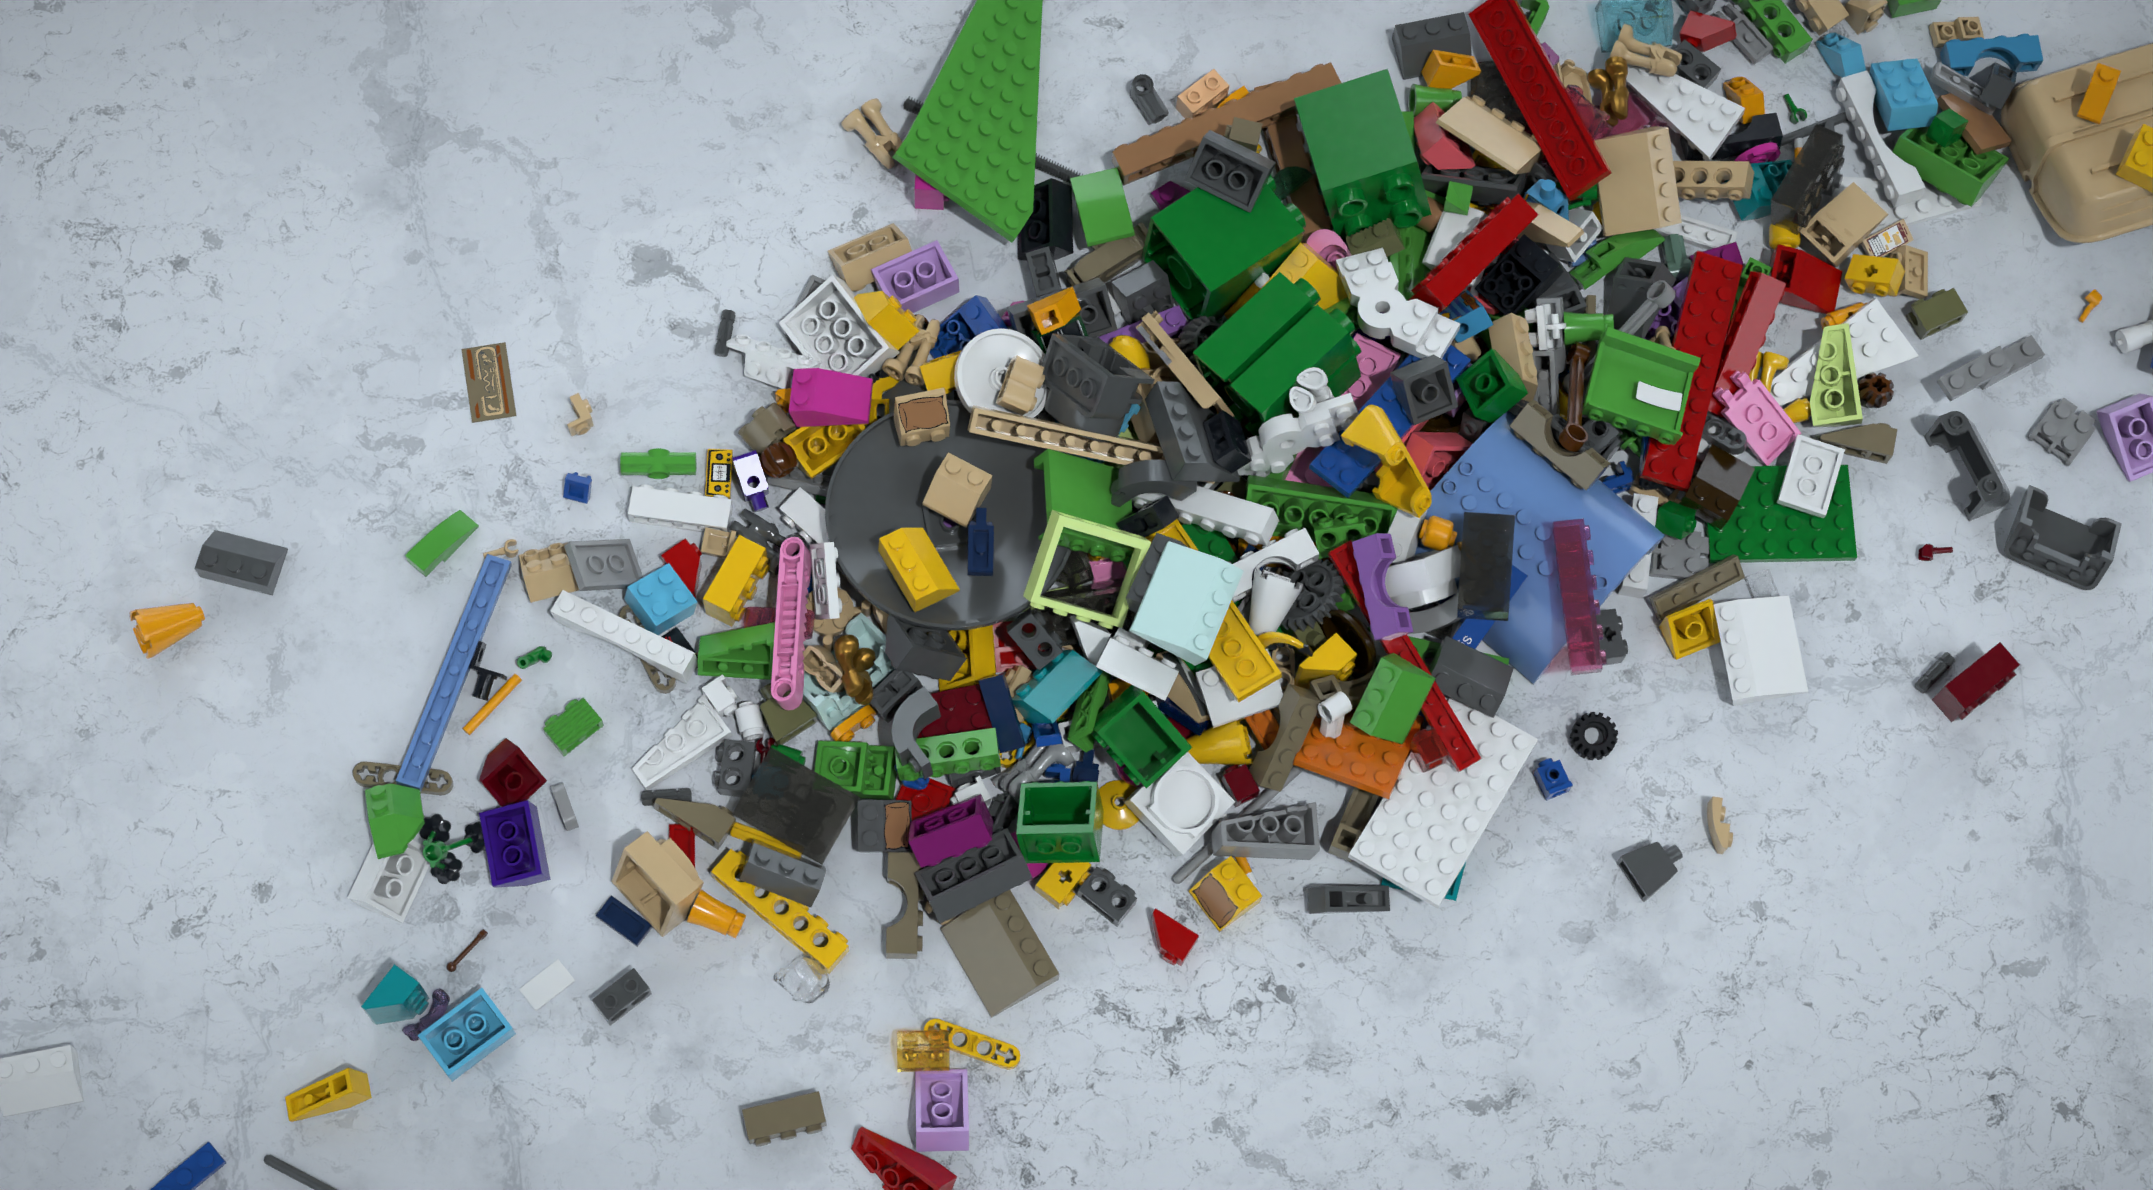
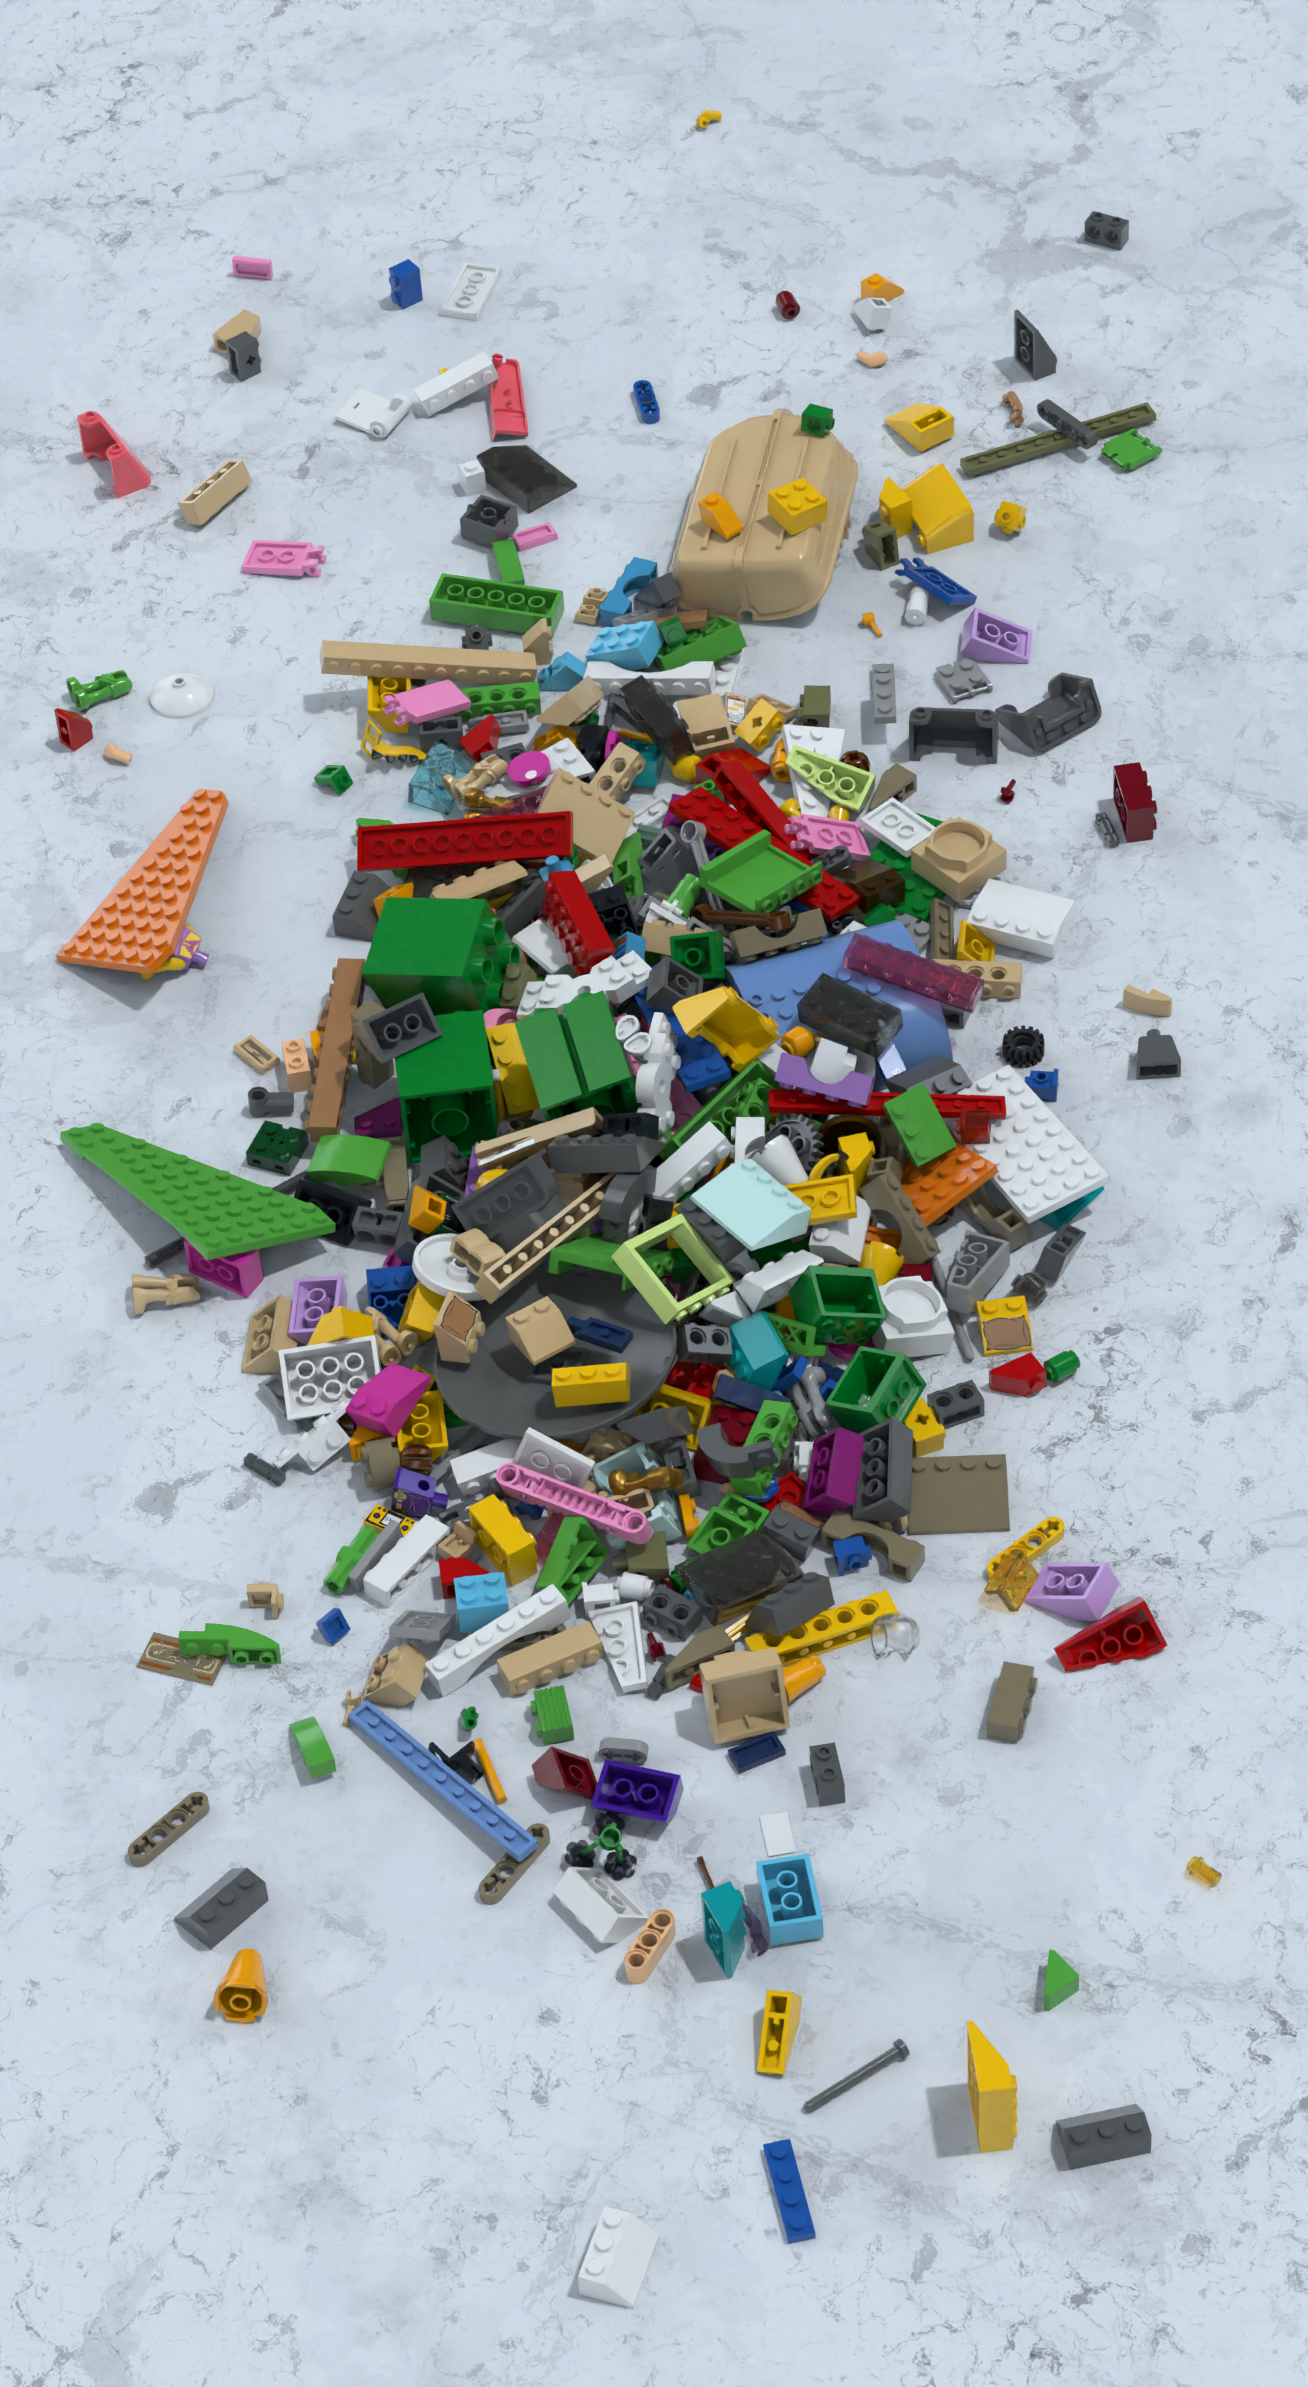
camera: 50 degrees left, 25 degrees down
(300, 476) = (172, 1831): none -> dark tan beam
(377, 945) = (654, 1936): none -> light nougat beam
(394, 817) = (553, 1864): bright green wedge -> none
(516, 417) = (237, 1642): none -> bright green slope
(632, 690) = (550, 1658): none -> tan brick
(677, 481) = (383, 1544): none -> light grey tile
(692, 774) = (656, 1648): none -> dark red hand
(881, 891) = (851, 1554): none -> blue brick
(1096, 134) = (277, 1148): none -> dark green piece
(1197, 70) = (253, 1057): none -> tan tile
(1205, 969) = (1061, 1366): none -> green brick
(1282, 894) = (1030, 1287): none -> clear smoke head
(1332, 713) = (905, 1171): white piece -> none
(1458, 198) = (517, 926): bright green slope -> none
(1646, 611) = (1000, 978): none -> tan brick
(1658, 396) = (778, 868): white sticker -> none
(1680, 95) = (529, 768): none -> dark pink tile
(1792, 88) = (574, 704): none -> tan slope
(1796, 554) = (958, 858): none -> tan container

